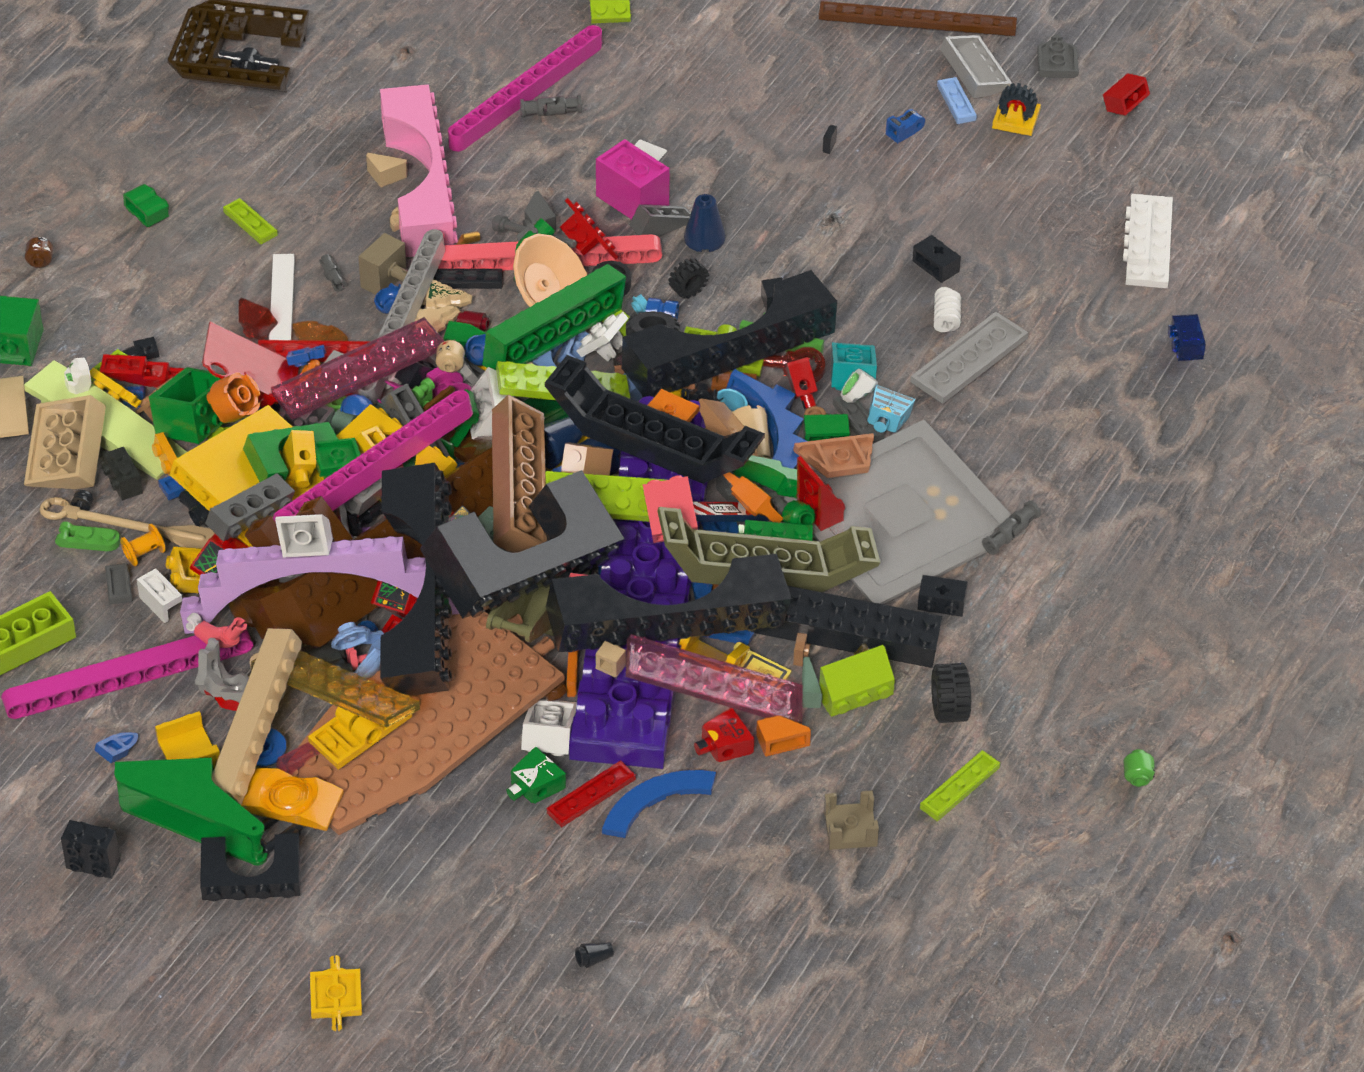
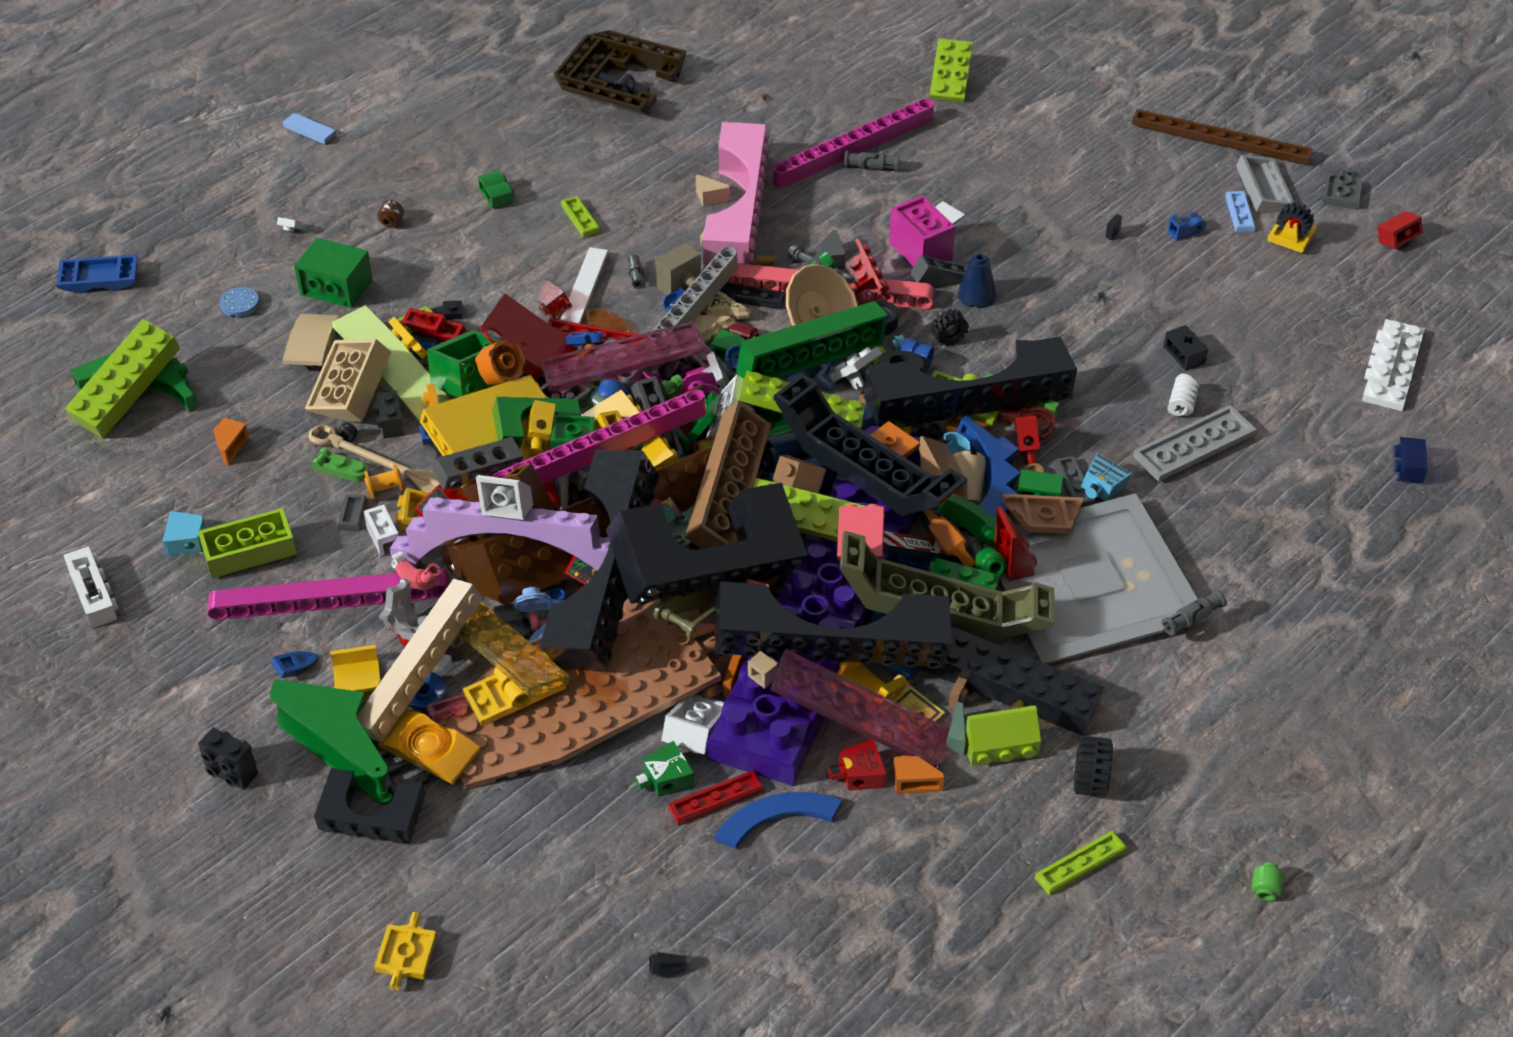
camera: 15 degrees right, 0 degrees up
(78, 376) = (376, 322): white rock -> none
(450, 356) = (706, 359): tan head -> none
(847, 359) = (1081, 433): teal slope -> none
(851, 823) = (960, 880): dark tan panel -> none
(858, 386) = (1080, 451): white rock -> none
(942, 595) = (1111, 666): black brick -> none

